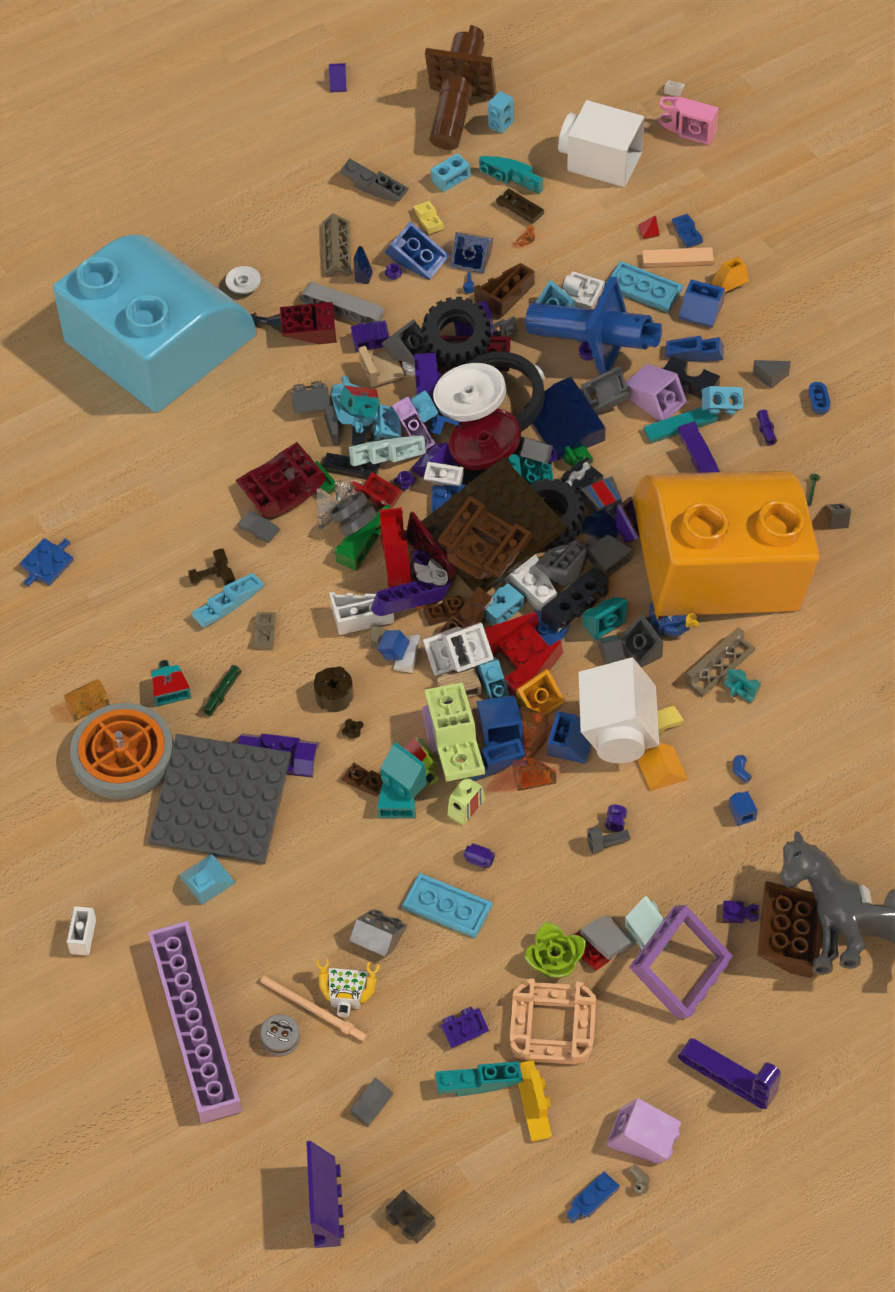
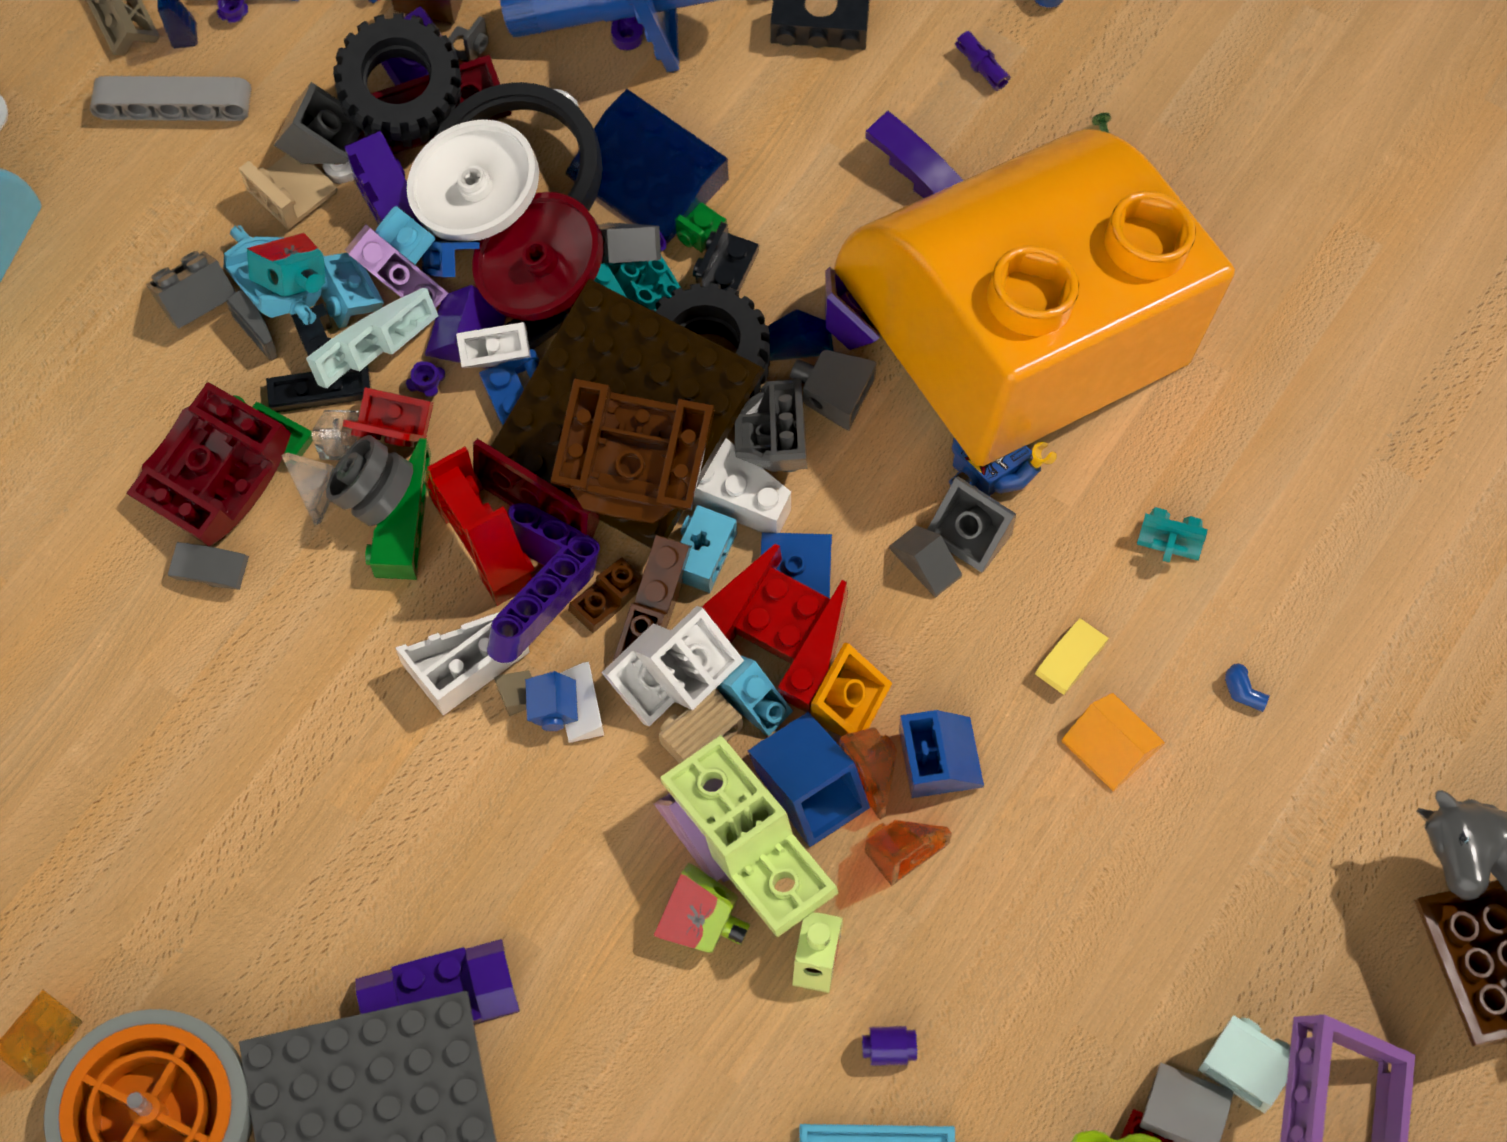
camera: 25 degrees left, 10 degrees up
(169, 684) = (178, 939): torso -> none
(217, 696) = (279, 925): dark green pin -> none
(219, 568) = (172, 673): dark brown bar -> none
(227, 601) = (213, 729): medium azure slope -> none
(264, 630) = (306, 760): dark tan slope -> none
(273, 321) = (71, 169): black piece -> none
(309, 322) = (128, 152): dark red slope -> none
(333, 689) = (489, 808): dark brown brick -> none
(352, 733) = (557, 896): dark brown plate -> none
(363, 780) = (617, 980): reddish brown slope -> none
(369, 335) = (244, 137): dark purple brick -> none
(393, 805) = (694, 994): teal torso -> none
(403, 772) = (693, 952): teal slope -> none
(432, 573) = (560, 541): light grey plate -> none
(500, 757) = (840, 837): blue slope -> none
(575, 600) = (836, 444): black brick -> none
(597, 841) = (1079, 928): dark grey piece -> none
(602, 496) = (781, 285): torso -> none
(605, 617) = (888, 500): teal slope -> none
(610, 390) = (698, 86): dark grey container -> none
(615, 819) = (1087, 871): dark purple wheel -> none
(618, 710) = (1012, 678): white container -> none
(656, 391) = (775, 64): lavender slope -> none
(668, 427) = (839, 105): teal tile -> none
(688, 430) = (861, 114): dark purple tile -> none
(716, 656) = (1106, 500): dark tan fence -> none
(722, 397) = (894, 38): medium azure brick -> none
(736, 912) = (1370, 963): dark purple plate -> none
(742, 808) = (1286, 762): blue brick -> none
(838, 515) = (1177, 167): dark grey slope -> none

